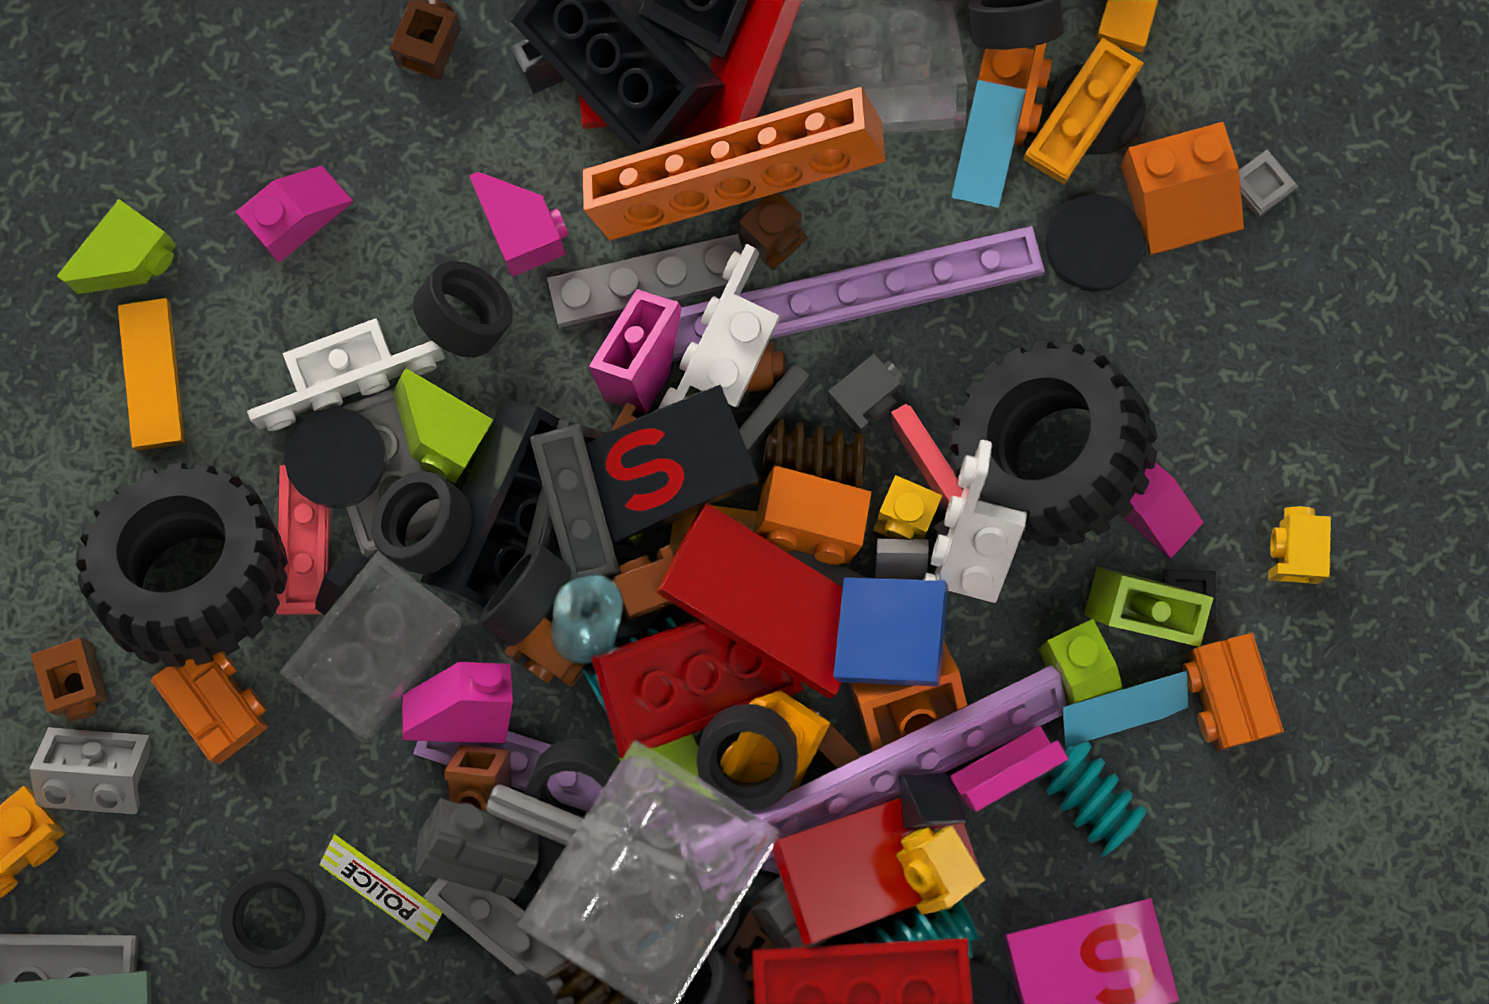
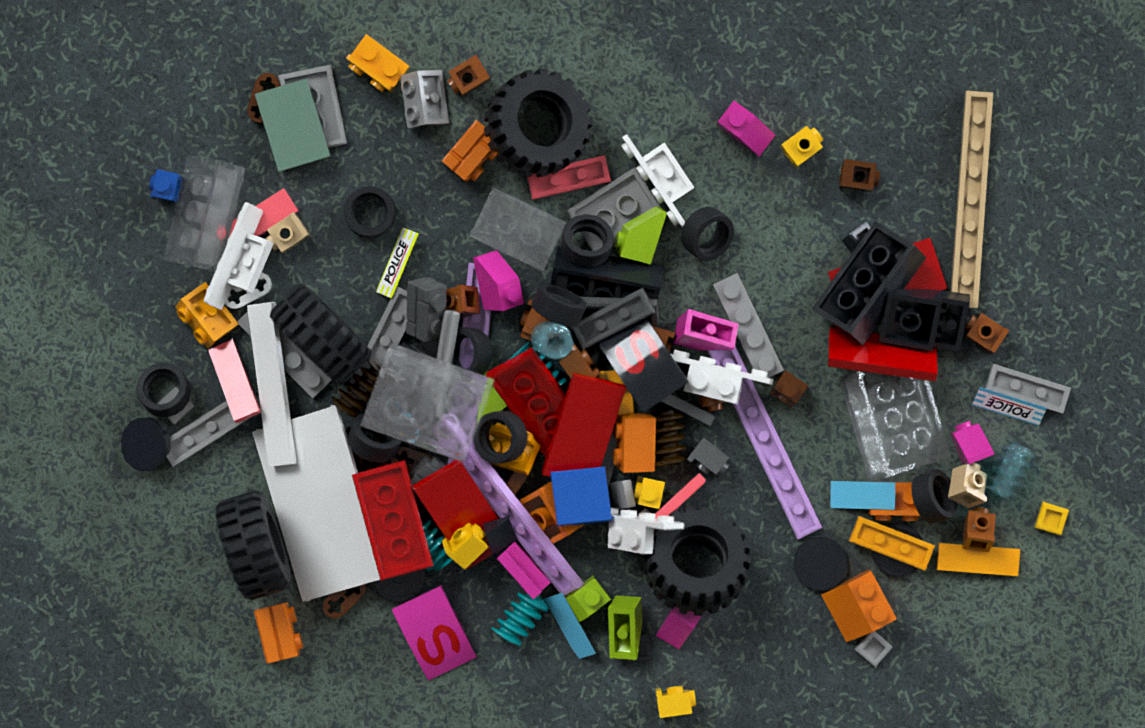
camera: 75 degrees right, 10 degrees up
(119, 253) = (701, 40): lime slope -> none
(151, 374) = (640, 73): light orange tile -> none
(335, 458) = (613, 185): black tile -> none
(339, 579) = (548, 204): black tile -> none
(355, 135) = (795, 152): none -> yellow brick
(521, 223) = (763, 252): dark pink slope -> none
(734, 164) = (812, 362): orange brick -> none
(1232, 692) = (590, 679): orange brick -> none

